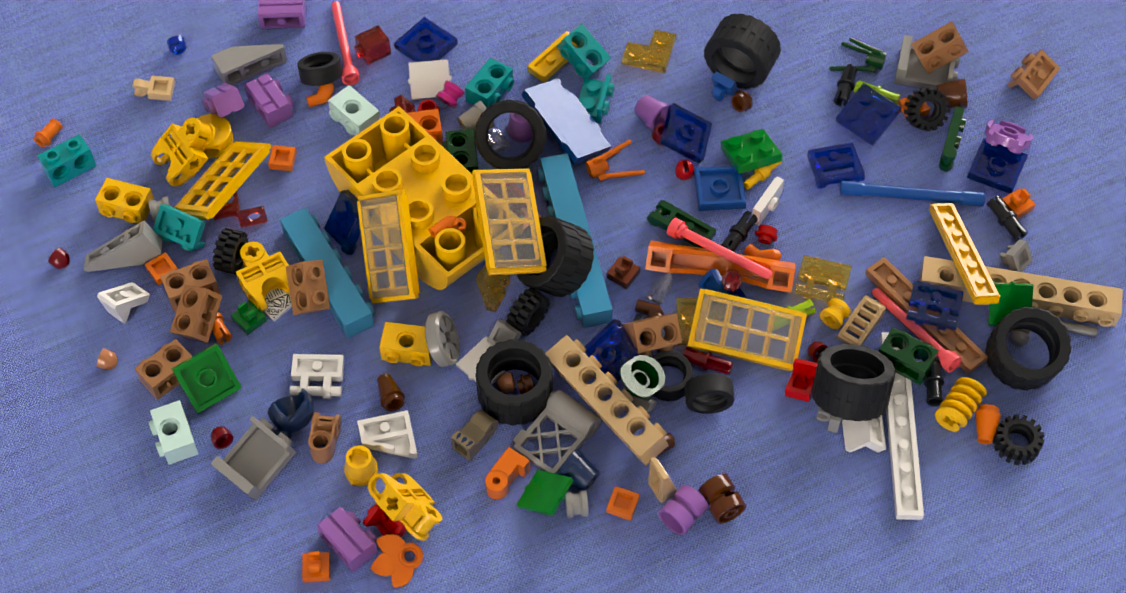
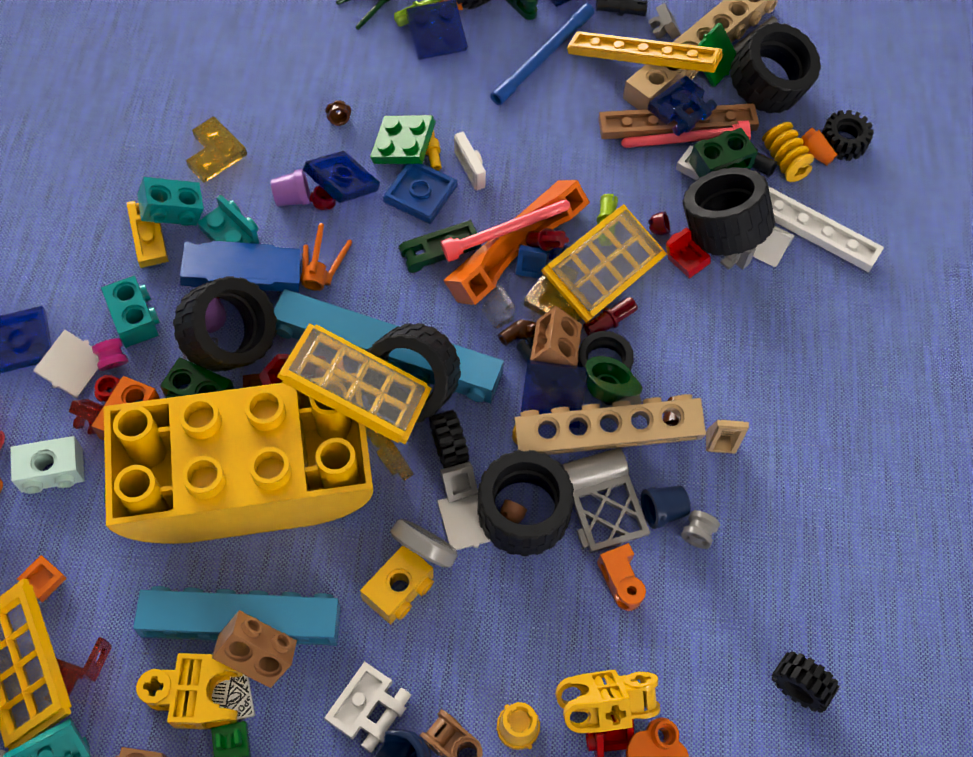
camera: 60 degrees left, 5 degrees up
(227, 250) = (131, 712): black tyre -> none
(342, 220) = (186, 557): clear blue plate -> none
(388, 246) = (276, 526): clear piece -> none
(389, 434) = (497, 670): white wing -> none
(390, 394) = (445, 639): reddish brown cone -> none
(447, 222) = (308, 446): orange arm -> none
(470, 117) = (162, 349): light grey piece -> none
(474, 434) = (555, 581): dark tan leg -> none
(525, 383) = (528, 495): reddish brown plate -> none
(544, 492) = (670, 551): green piece -> none
(623, 272) = (455, 327): copper tile -> none
(623, 503) = (723, 486): orange plate -> none
(680, 172) = (374, 207): red hinge -> none
(685, 507) = (766, 437): medium lavender wheel -> none
(709, 393) = (656, 335): black tyre -> none
(722, 86) = (310, 115): blue tile -> none
(722, 499) = (775, 395): reddish brown wheel -> none
(739, 232) = (485, 203): black pin -> none
(742, 50) = (283, 54): black tyre -> none
(766, 234) = (504, 185): red plate -> none
(773, 254) = (516, 207): orange arm -> none
(822, 273) = (585, 164): clear yellow plate -> none
(832, 159) = (462, 84): clear blue plate -> none
(835, 313) = (631, 185): yellow wheel -> none
(845, 85) = (388, 26): black axle -> none
(870, 310) = (648, 156): tan slope -> none

